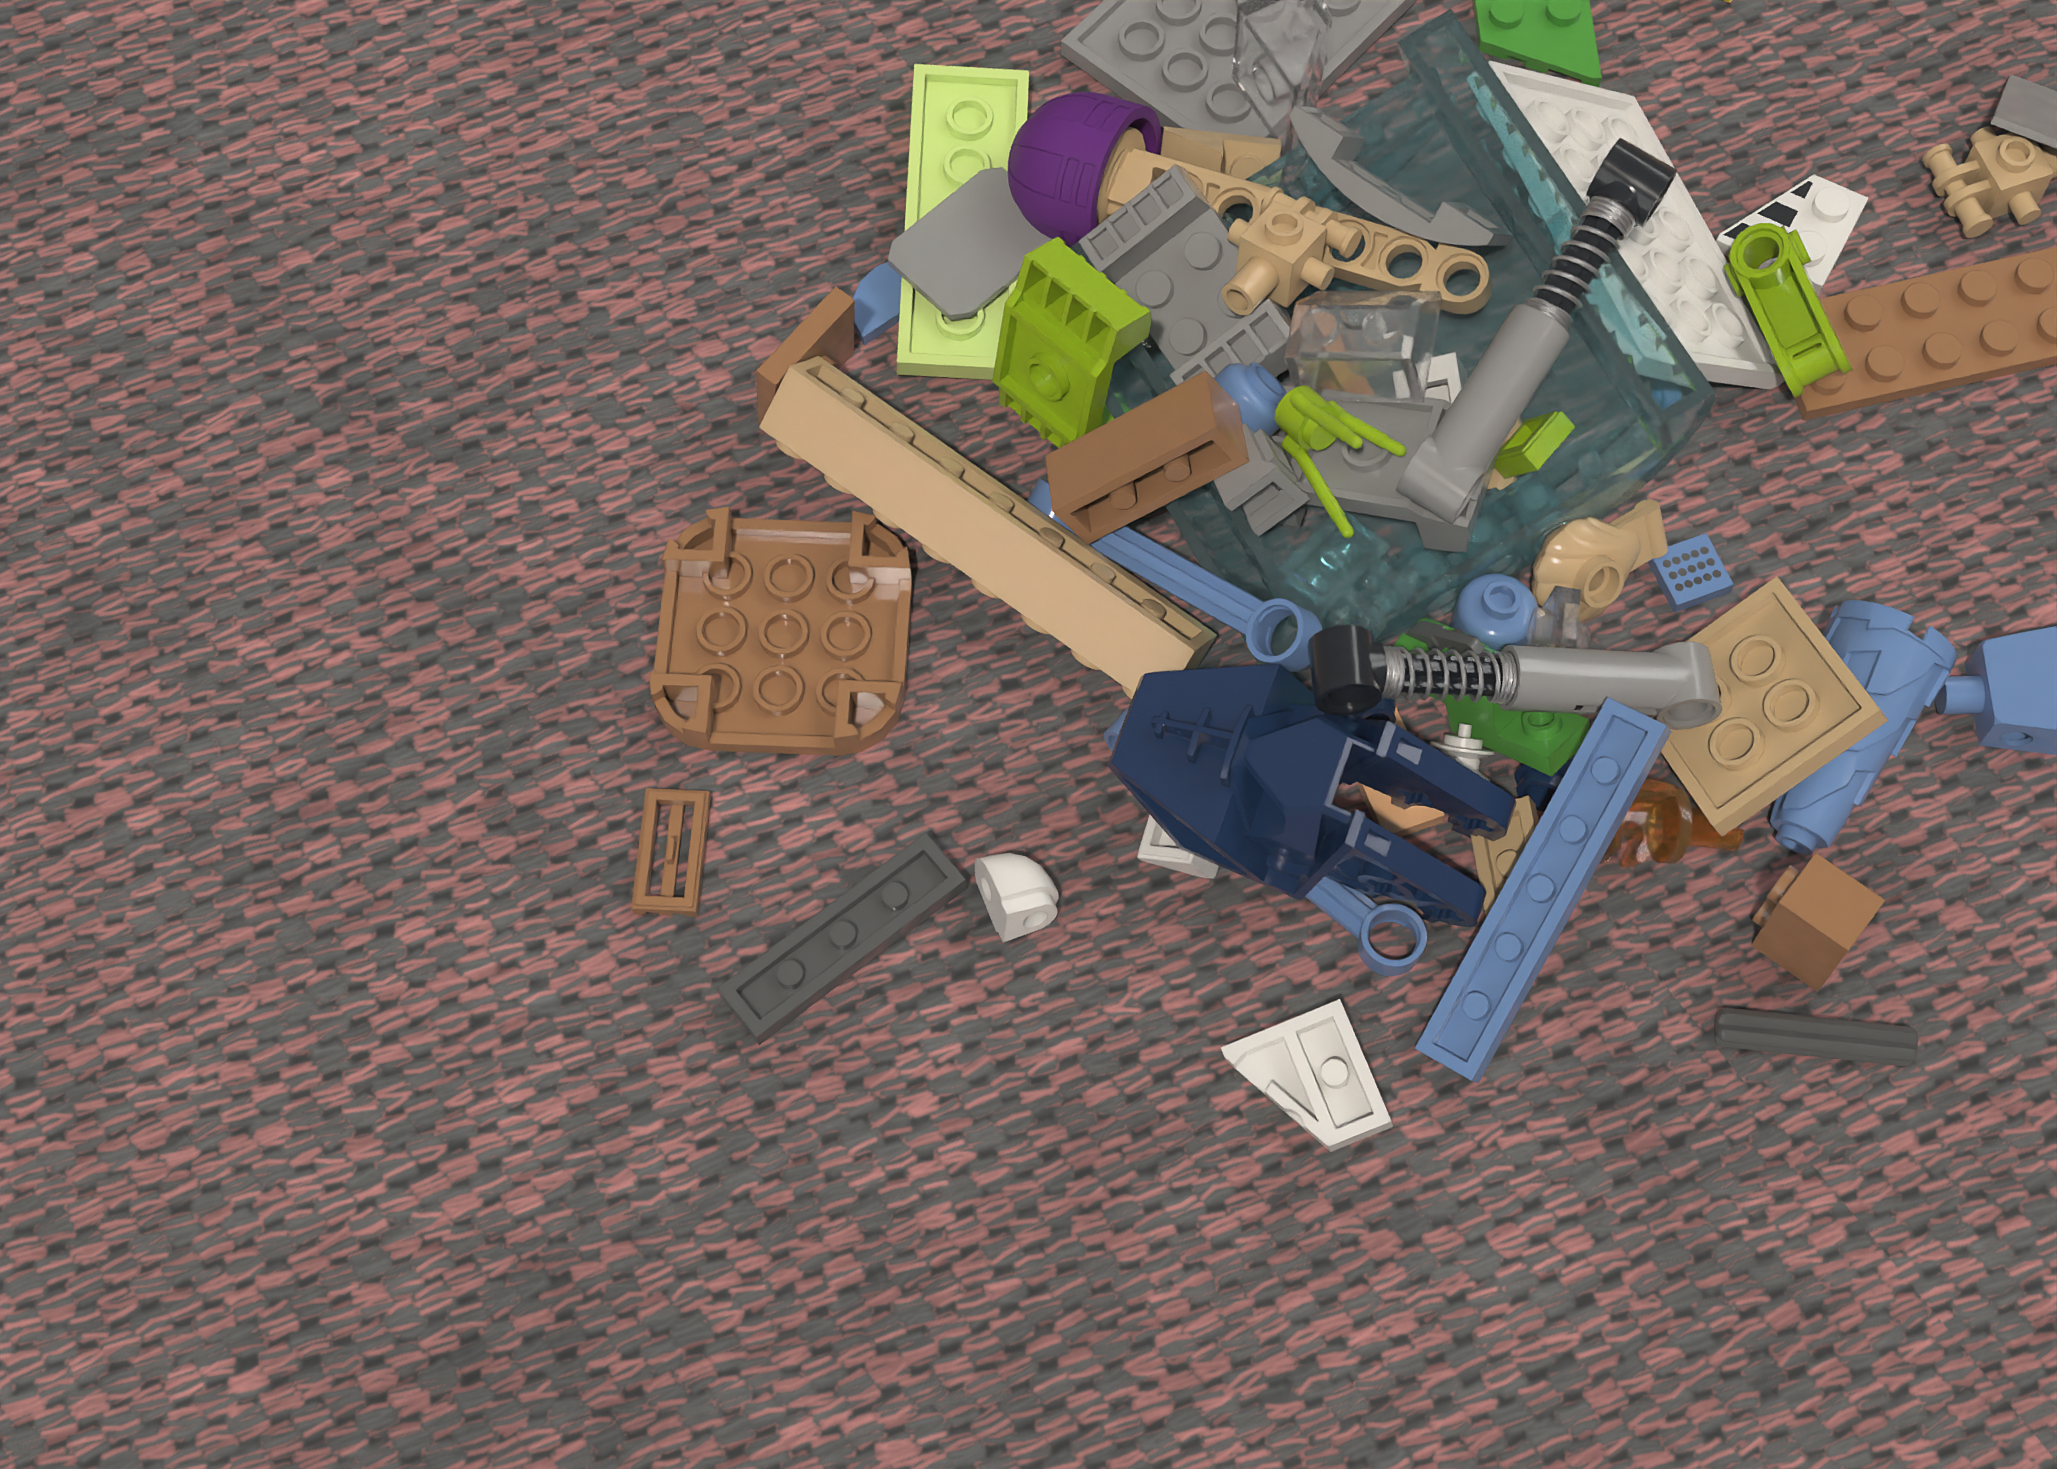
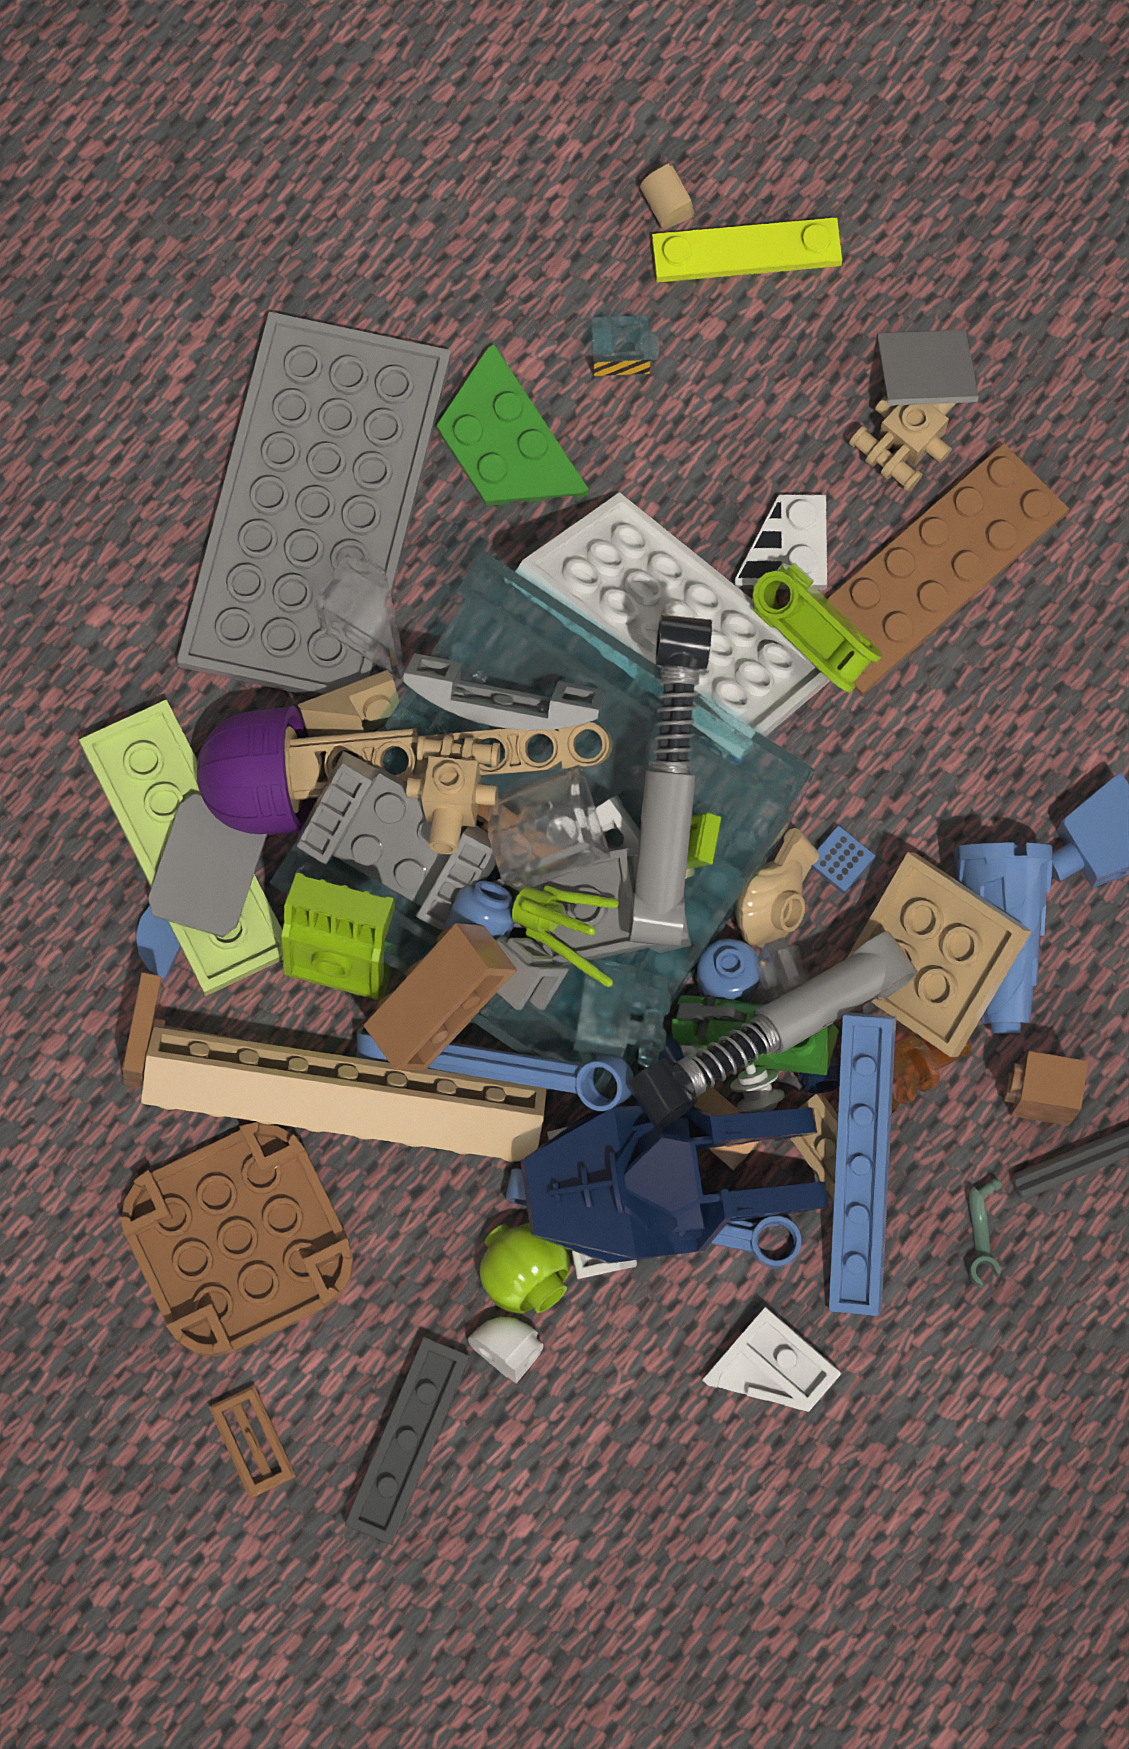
camera: 30 degrees left, 10 degrees up
(1087, 813) = (523, 1270): none -> lime plant
(1648, 1055) = (981, 1230): none -> sand green piece

